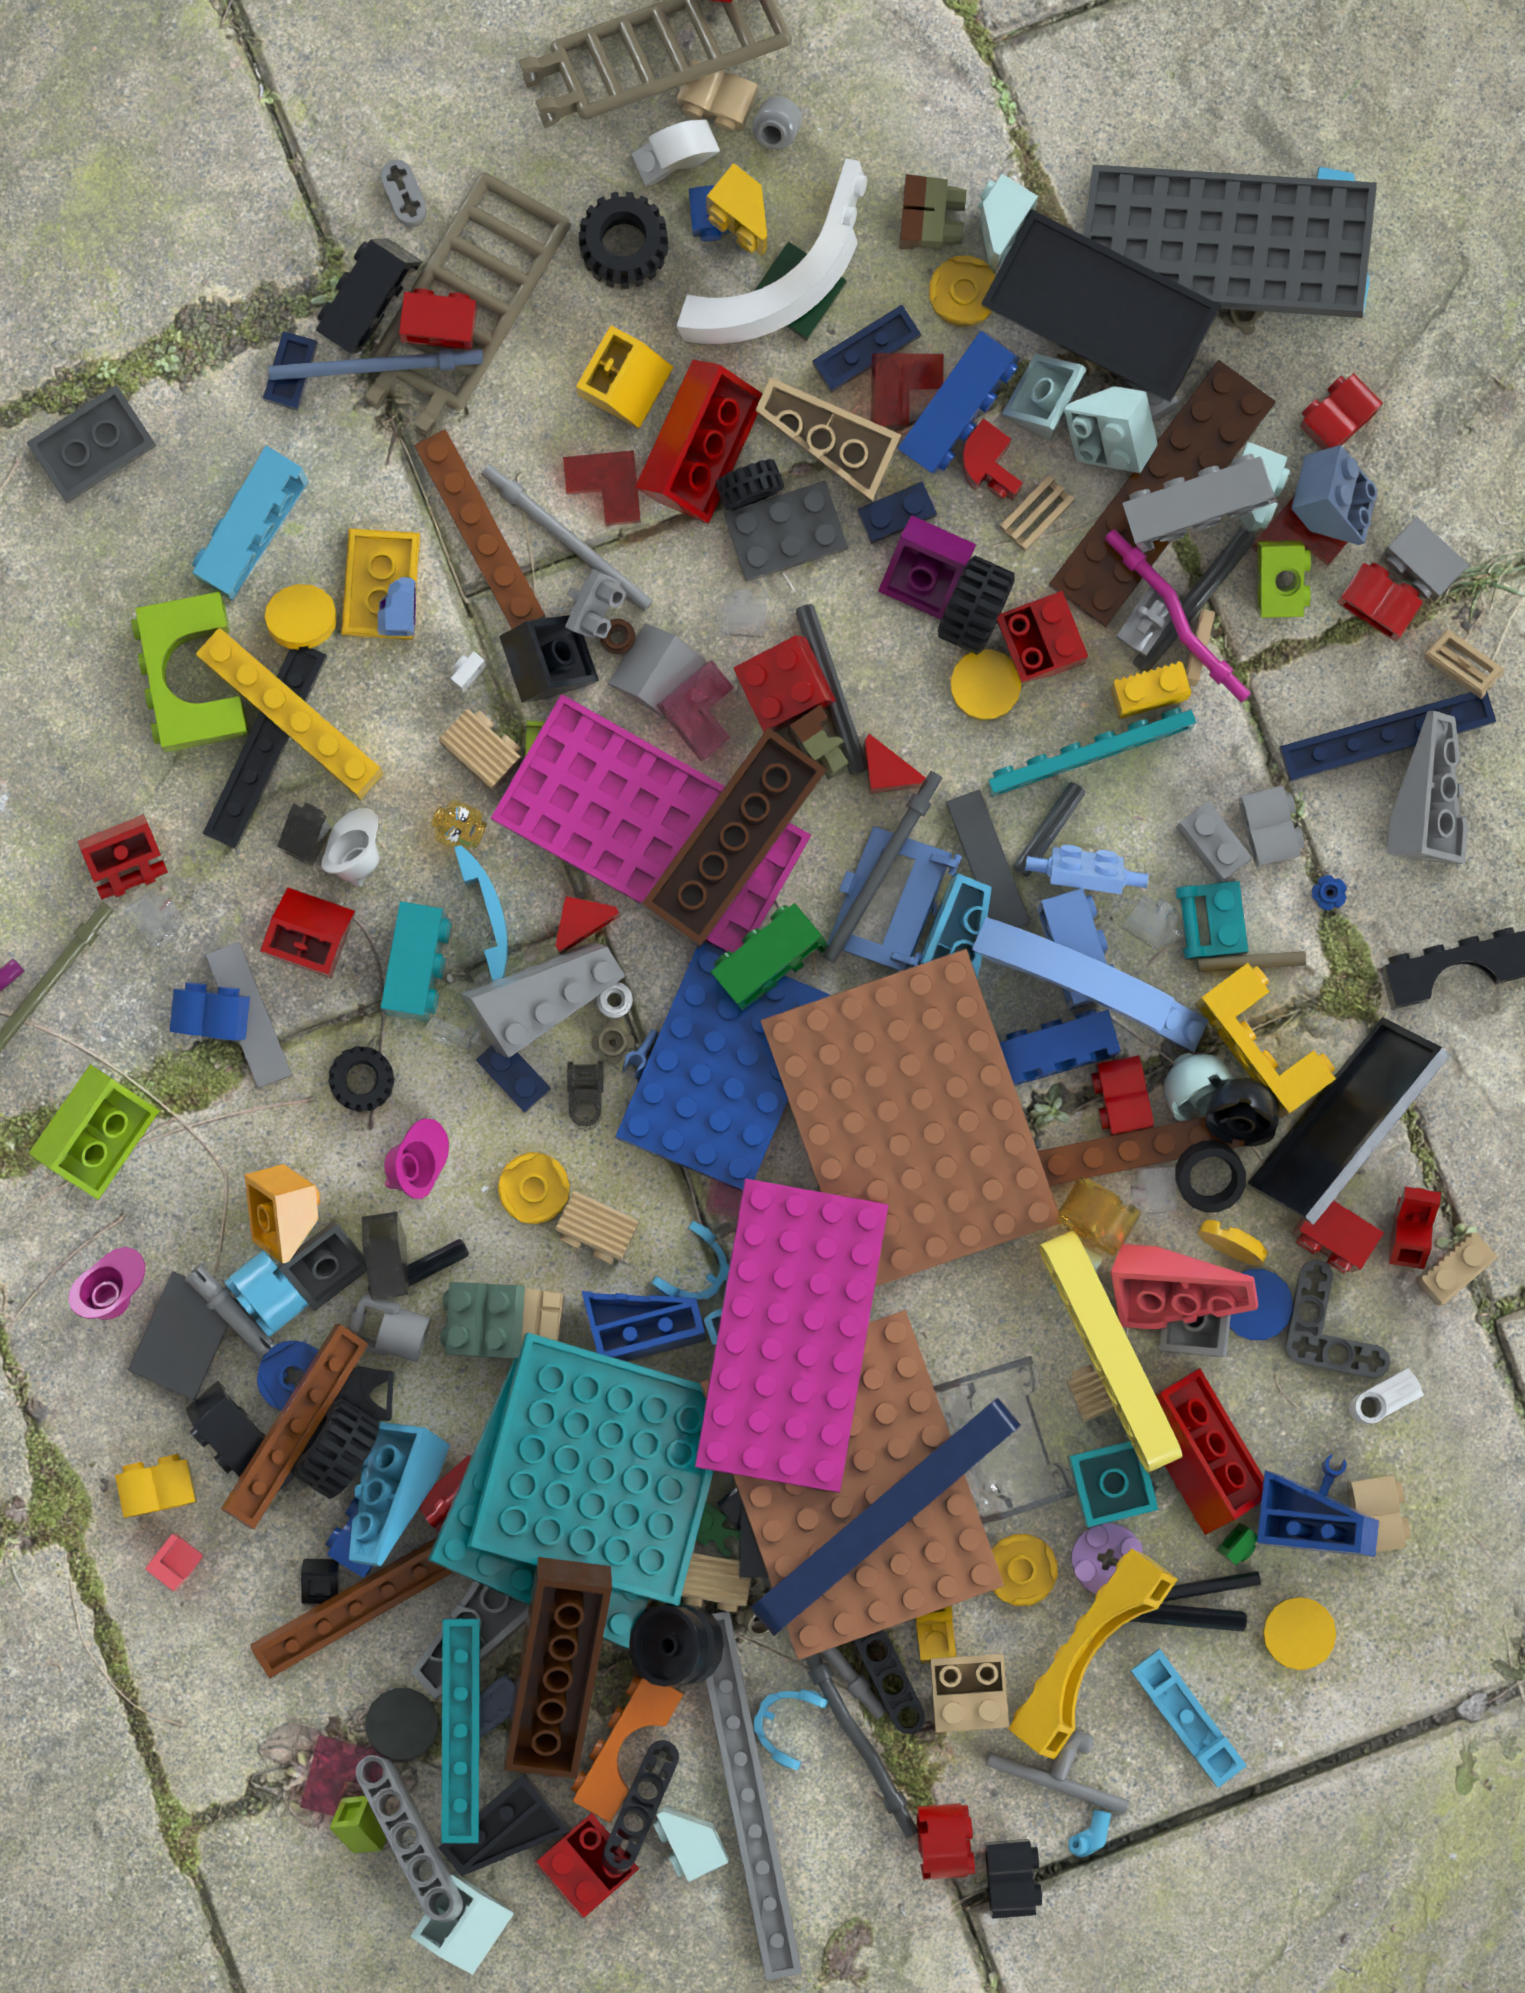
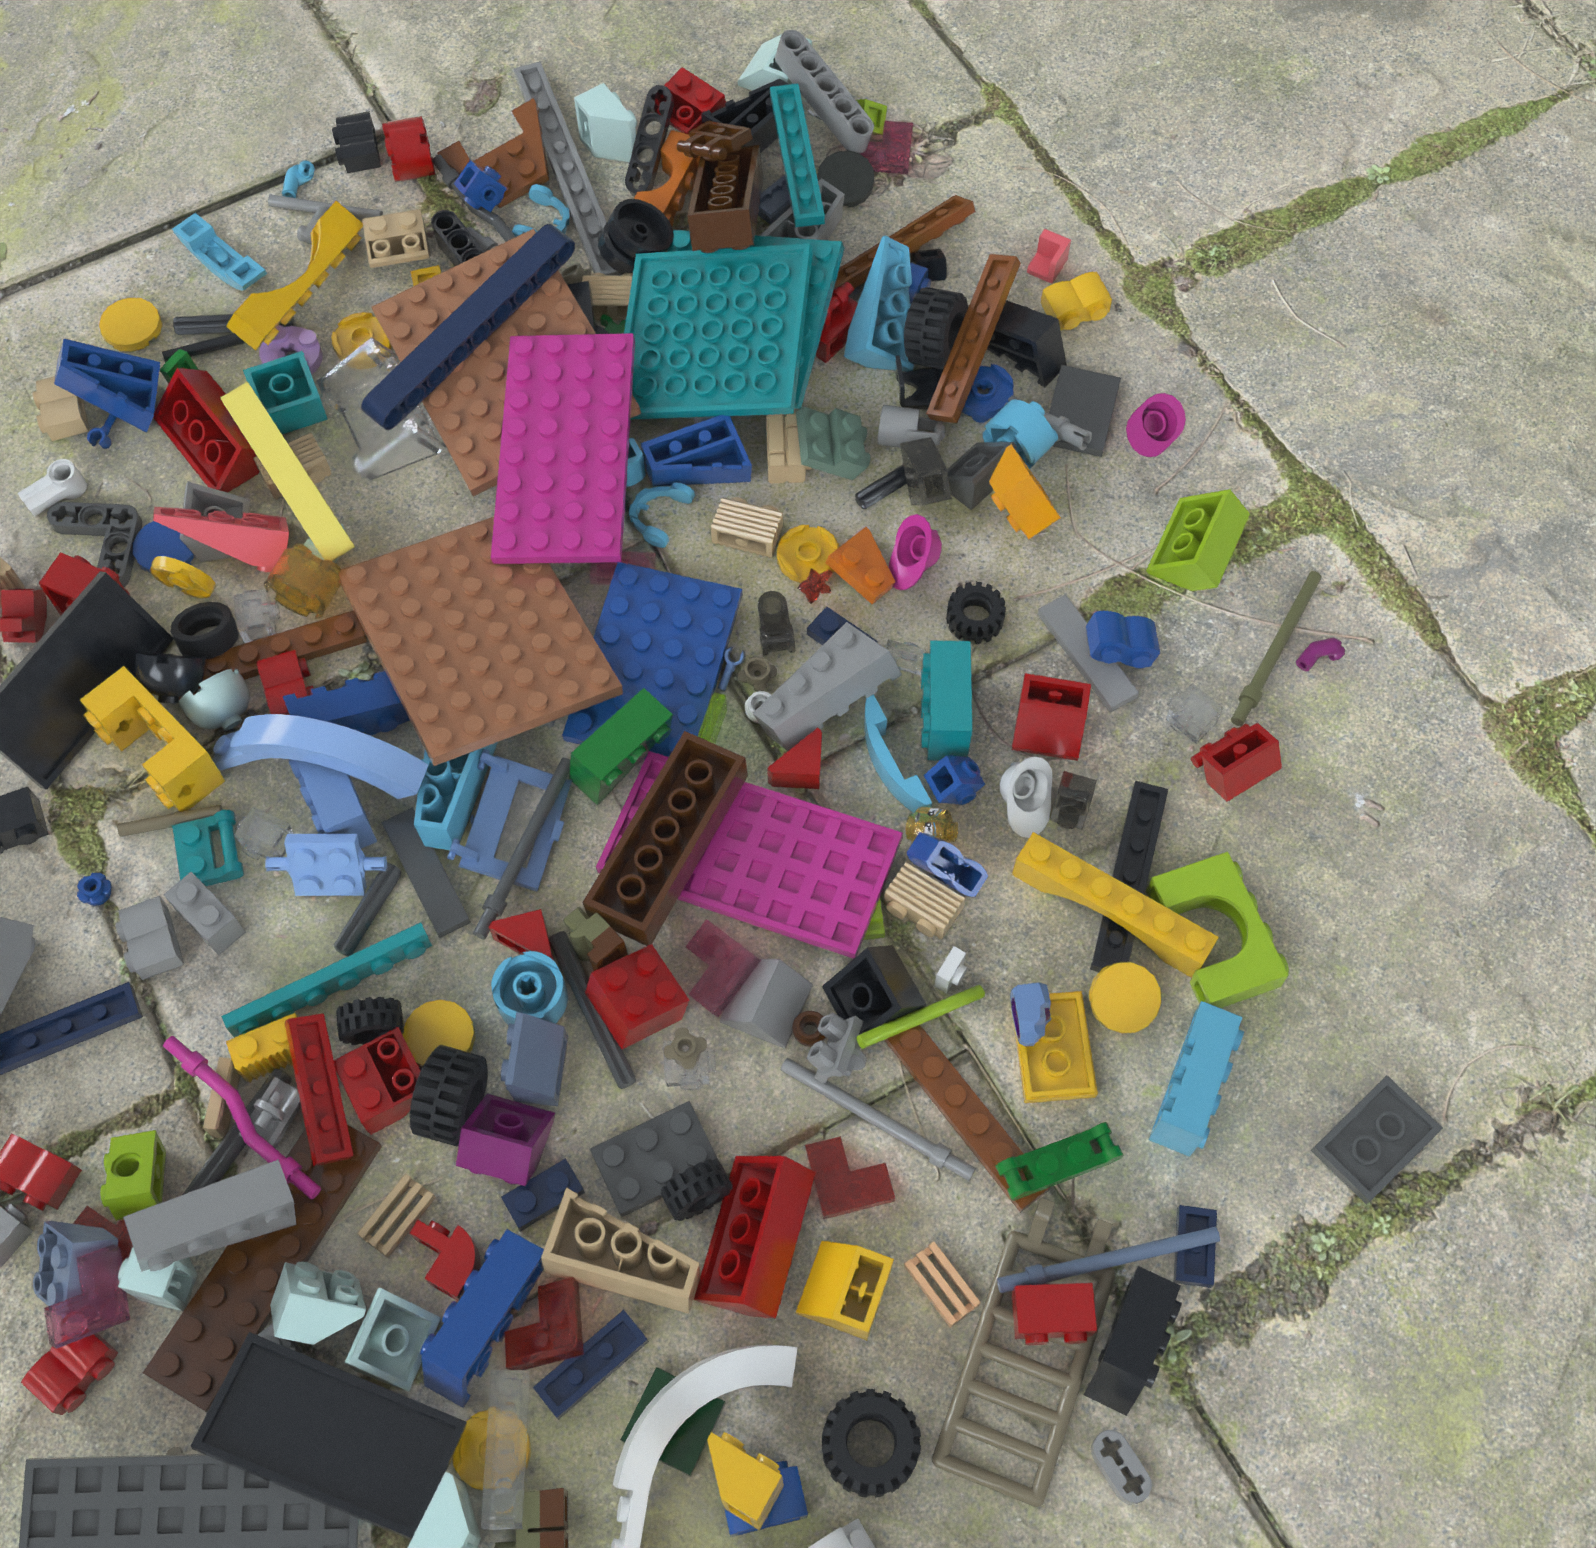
camera: 175 degrees right, 20 degrees down
(401, 464) = (1059, 1161): none -> green plate
(424, 873) = (955, 780): none -> blue brick
(451, 772) = (947, 864): none -> blue brick
(475, 1158) = (862, 566): none -> orange wing
(495, 630) = (920, 1016): none -> lime bar
(519, 347) = (922, 1257): none -> light nougat tile
(532, 1139) = (815, 585): none -> clear red plant
(552, 1782) = (714, 140): none -> reddish brown plate
(673, 976) = (713, 718): none -> clear neon green tile
(745, 625) = (688, 1058): none -> dark tan plate
(821, 1805) = (518, 161): none -> dark orange wing
(859, 1757) = (480, 186): none -> blue brick
(884, 686) = (522, 975): none -> medium azure brick
(888, 633) = (535, 1060): none -> sand blue slope
(948, 281) = (506, 1450): none -> clear plate
(1050, 697) = (368, 1019): none -> black tyre
(1101, 628) = (318, 1089): none -> red plate
(1309, 455) = (97, 1307): none -> clear pink plate

